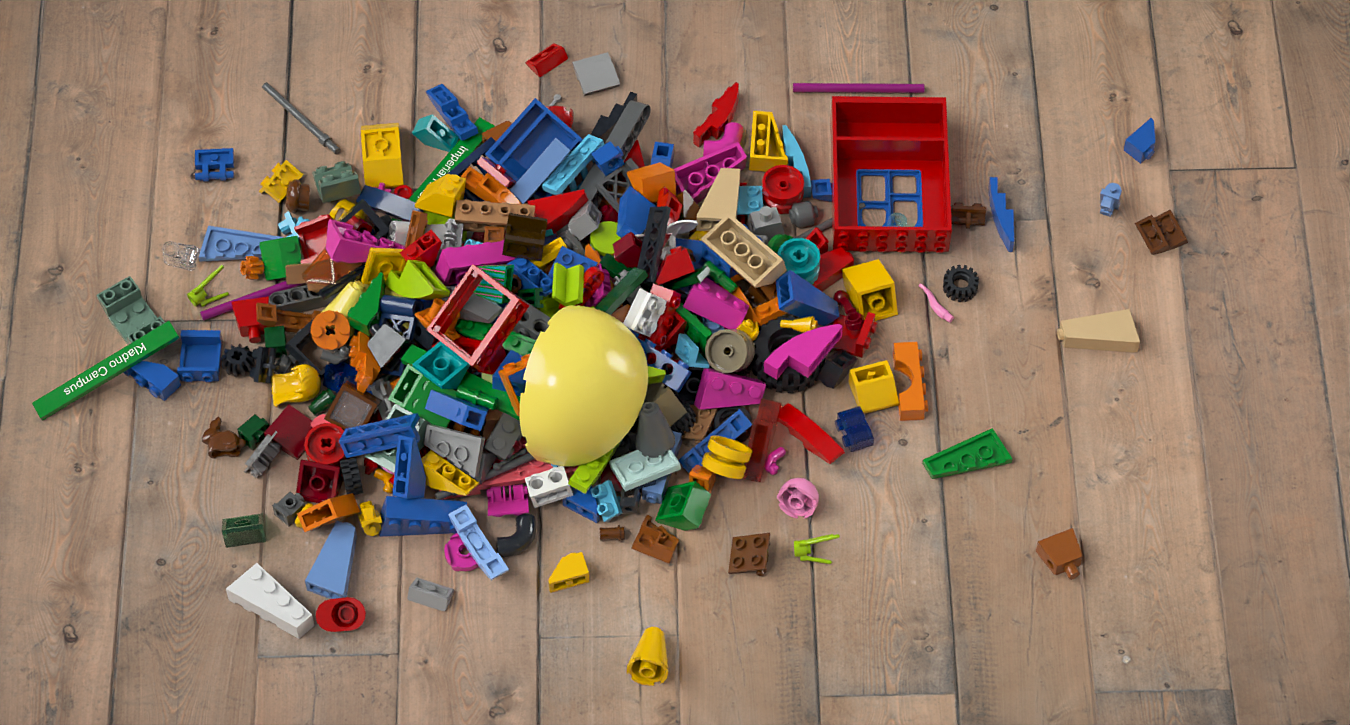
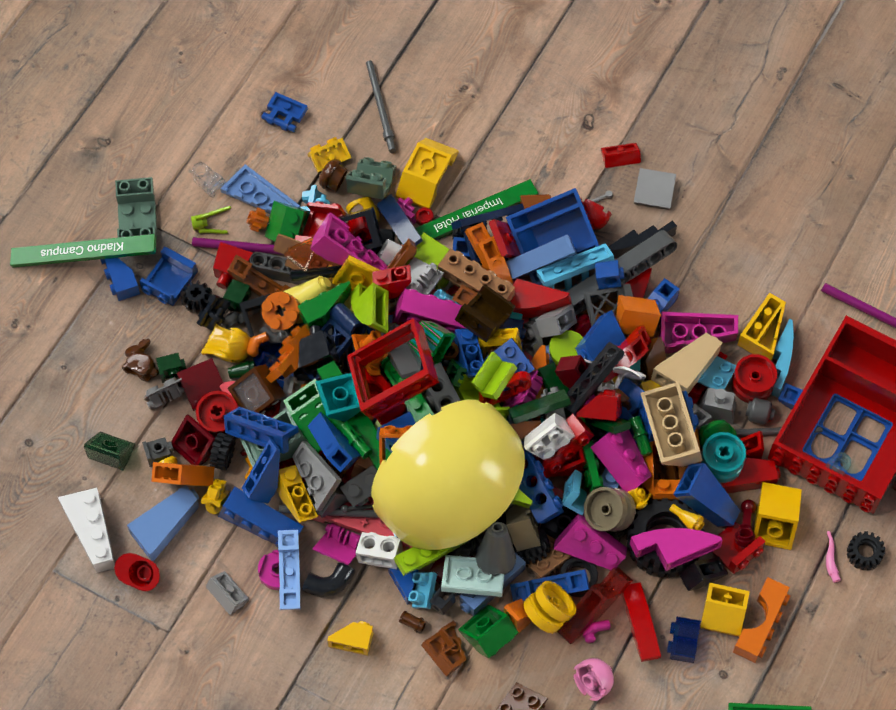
camera: 30 degrees right, 5 degrees up
(323, 370) = (254, 343): none -> orange arm
(435, 133) = (482, 175): teal slope -> none
(442, 195) = (442, 236): yellow slope -> none
(452, 112) = (509, 163): blue slope -> none
(722, 114) = (745, 280): red slope -> none
(732, 133) = (740, 306): dark pink cylinder -> none

